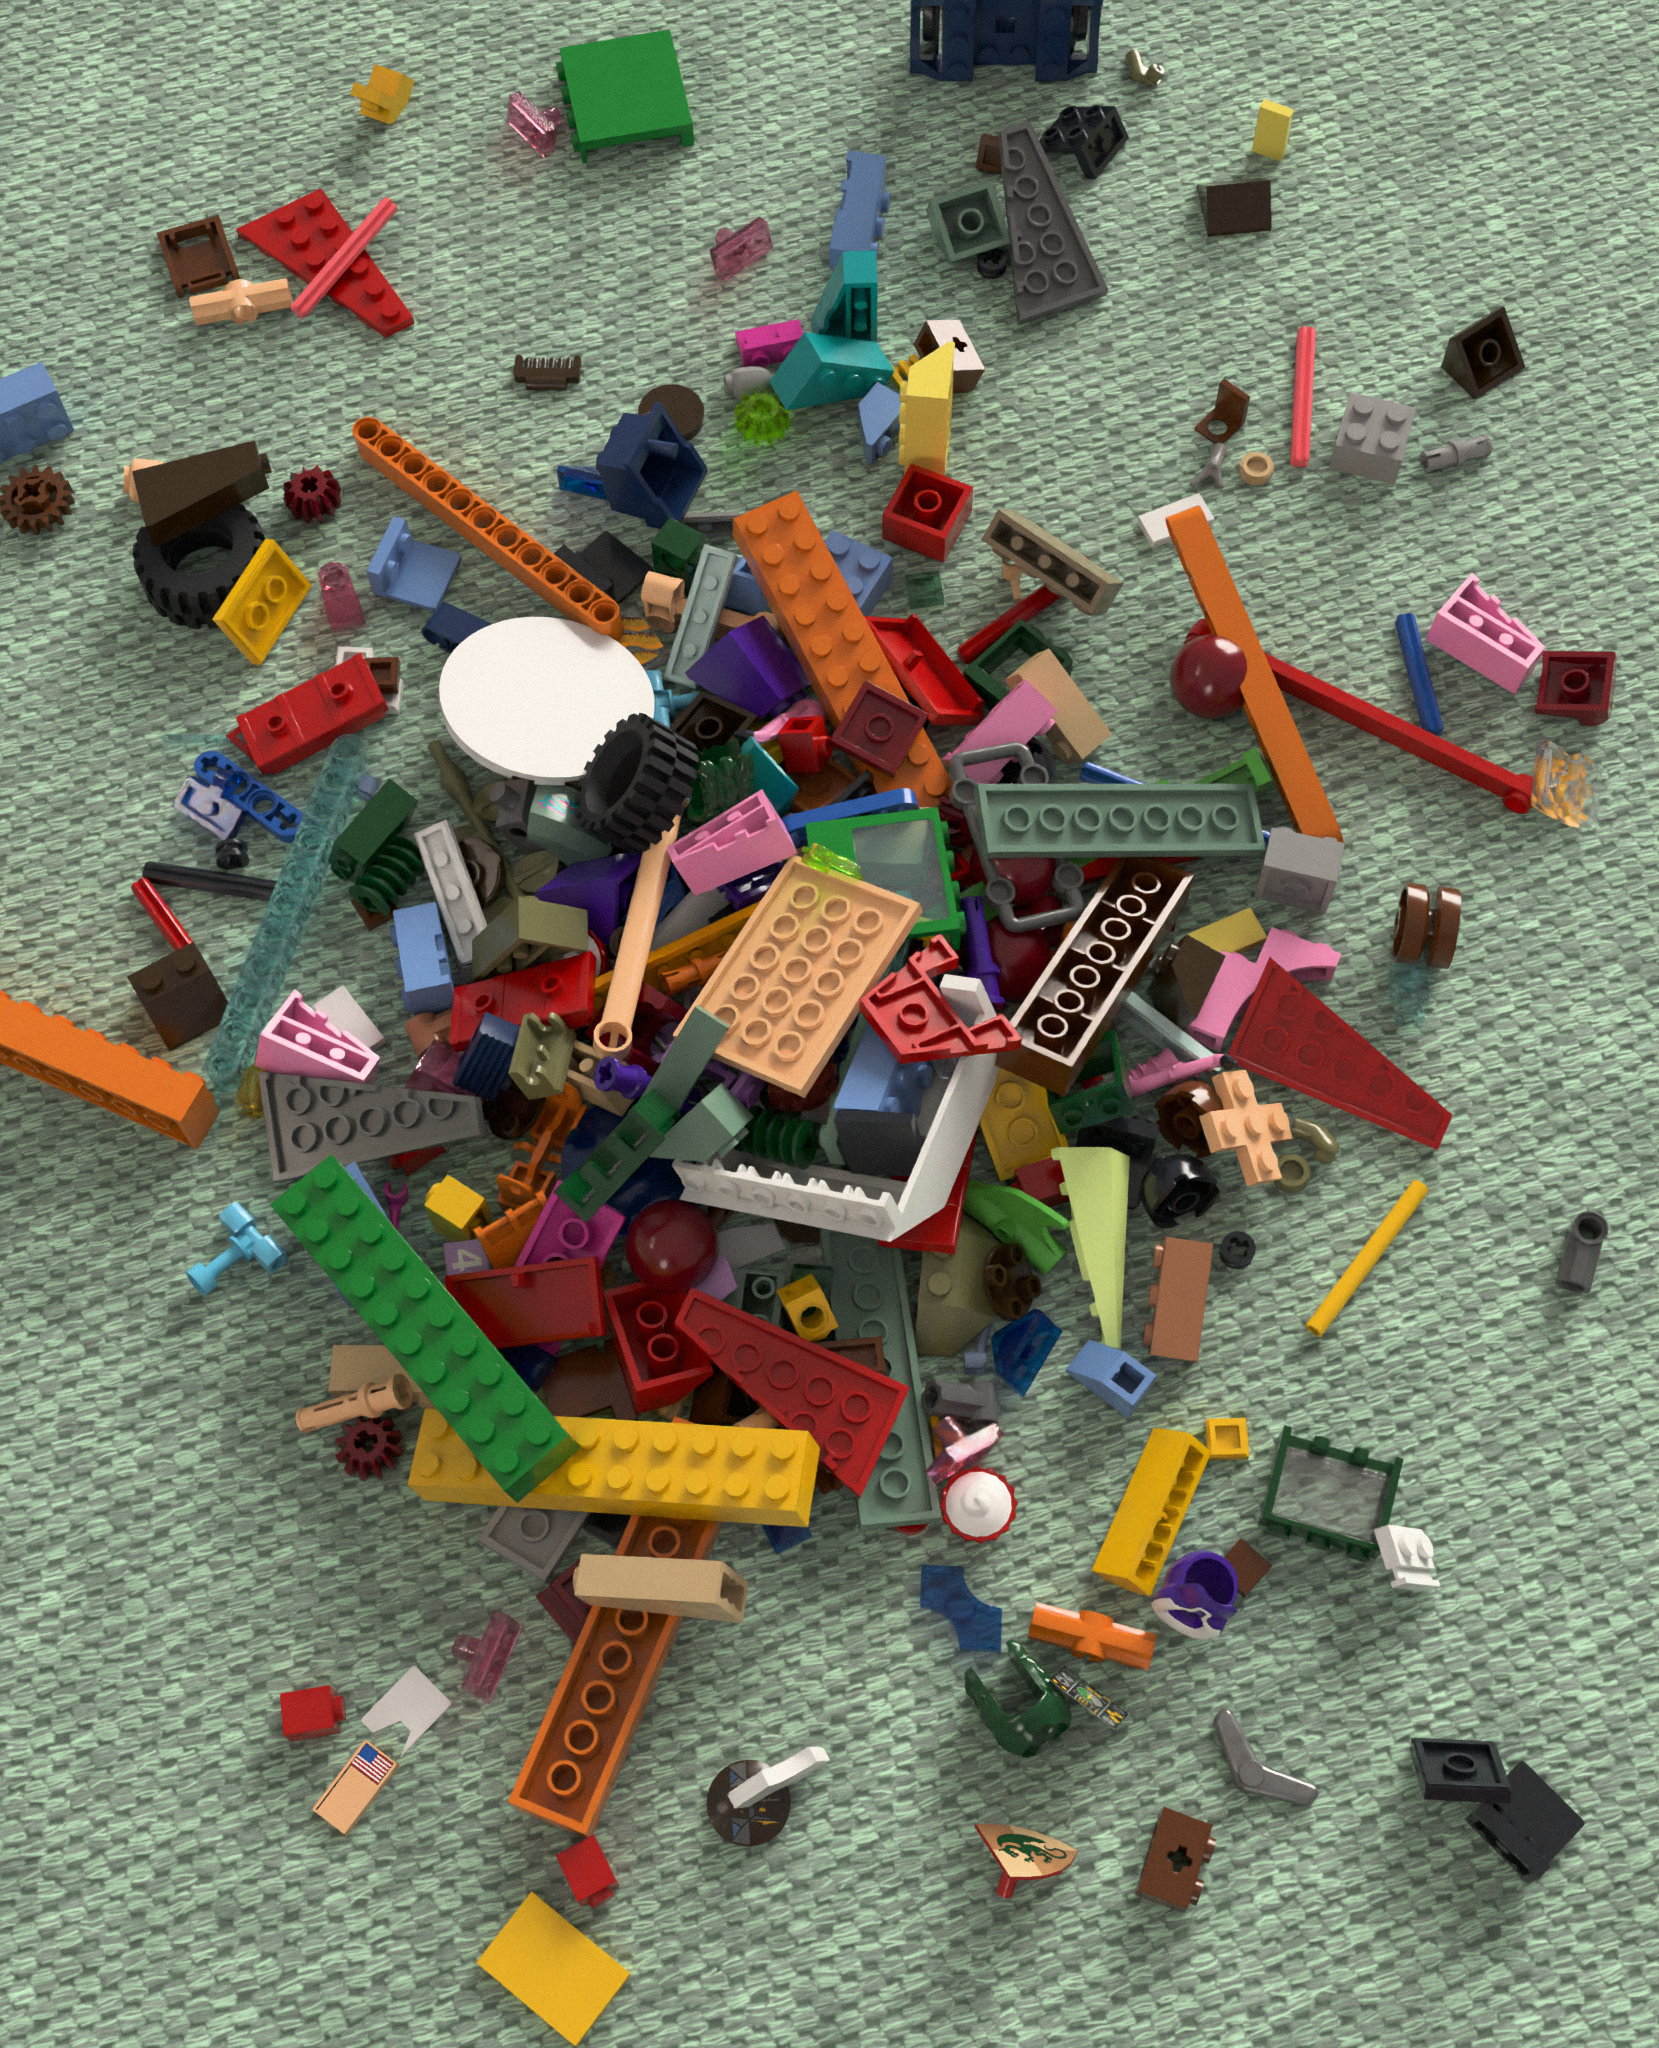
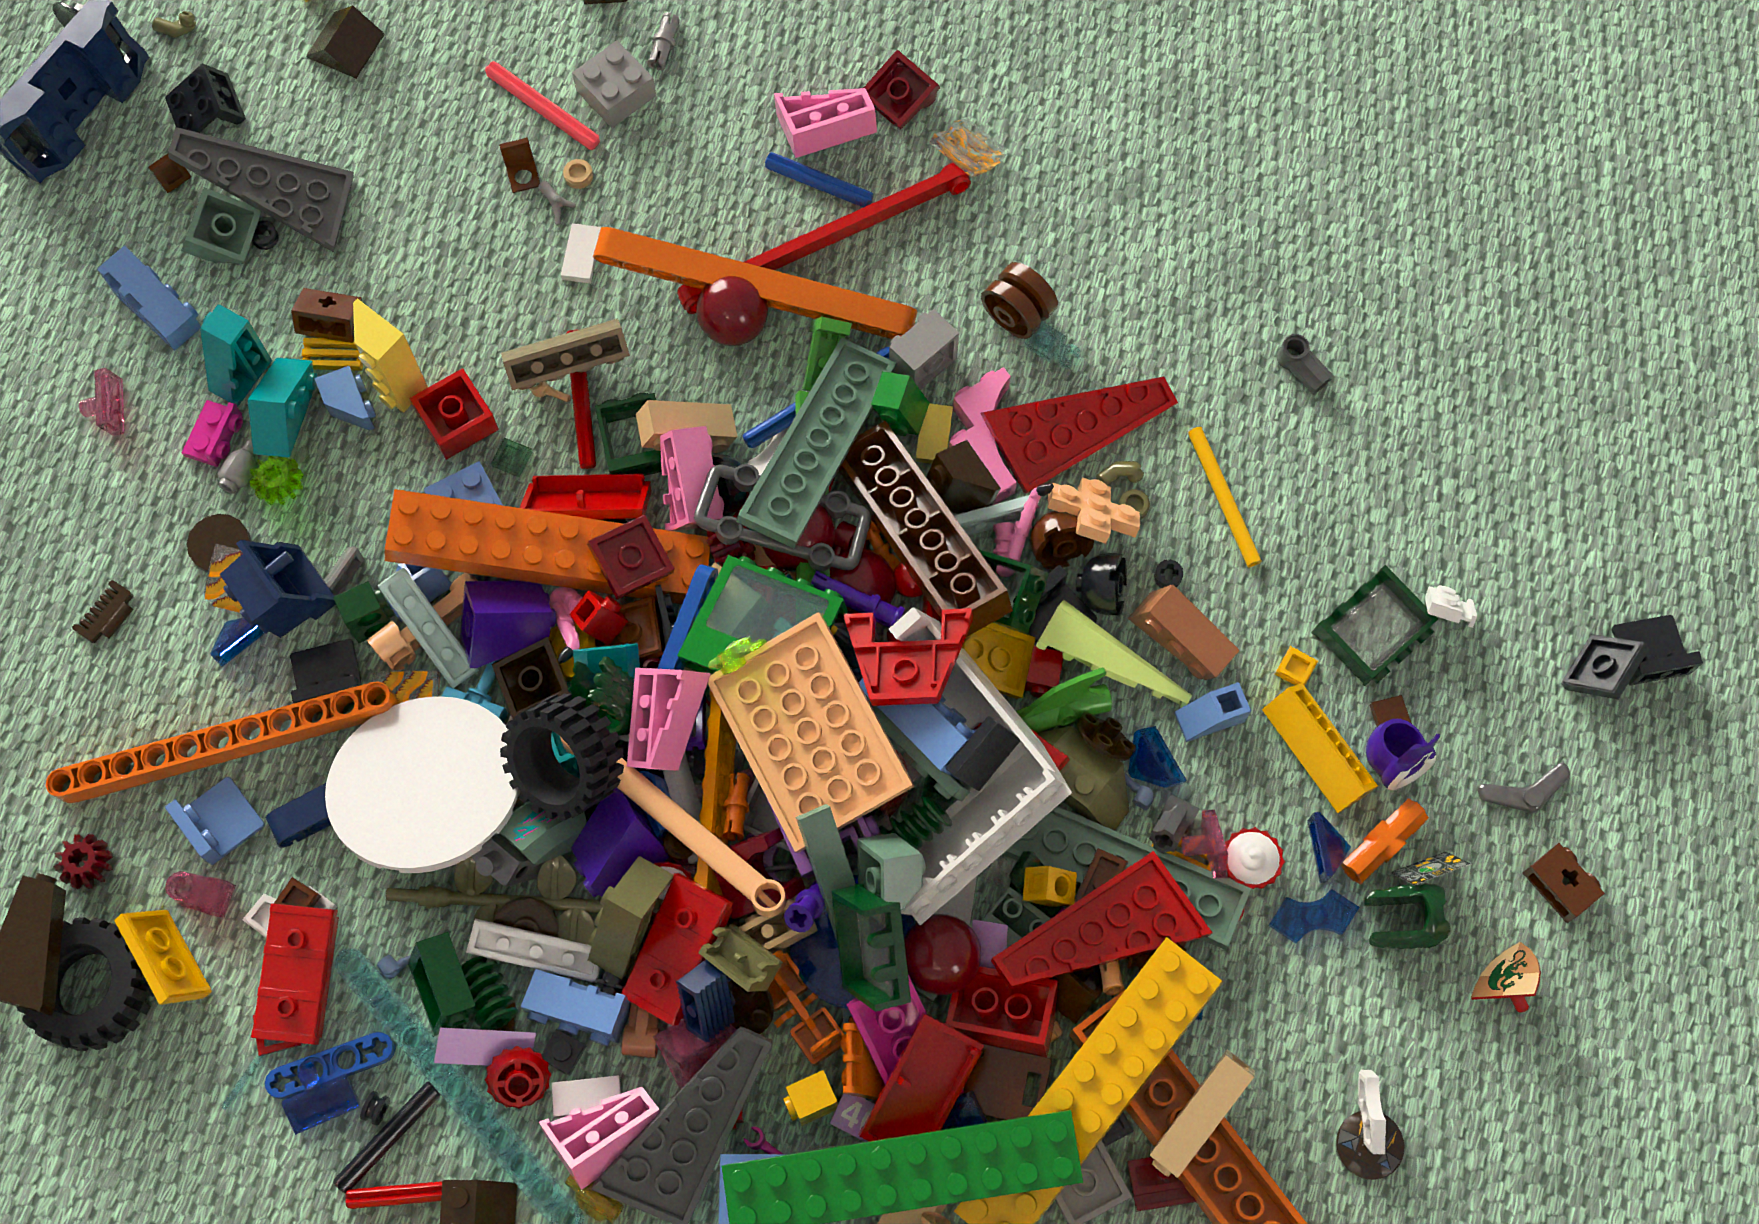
camera: 60 degrees left, 5 degrees up
(329, 952) = (517, 1077): none -> red piece
(337, 904) = (477, 1046): none -> lavender sticker
(377, 978) = (563, 1052): none -> black plate
(1045, 1580) = (1327, 846): none -> clear blue slope
(1224, 880) = (900, 403): none -> green brick

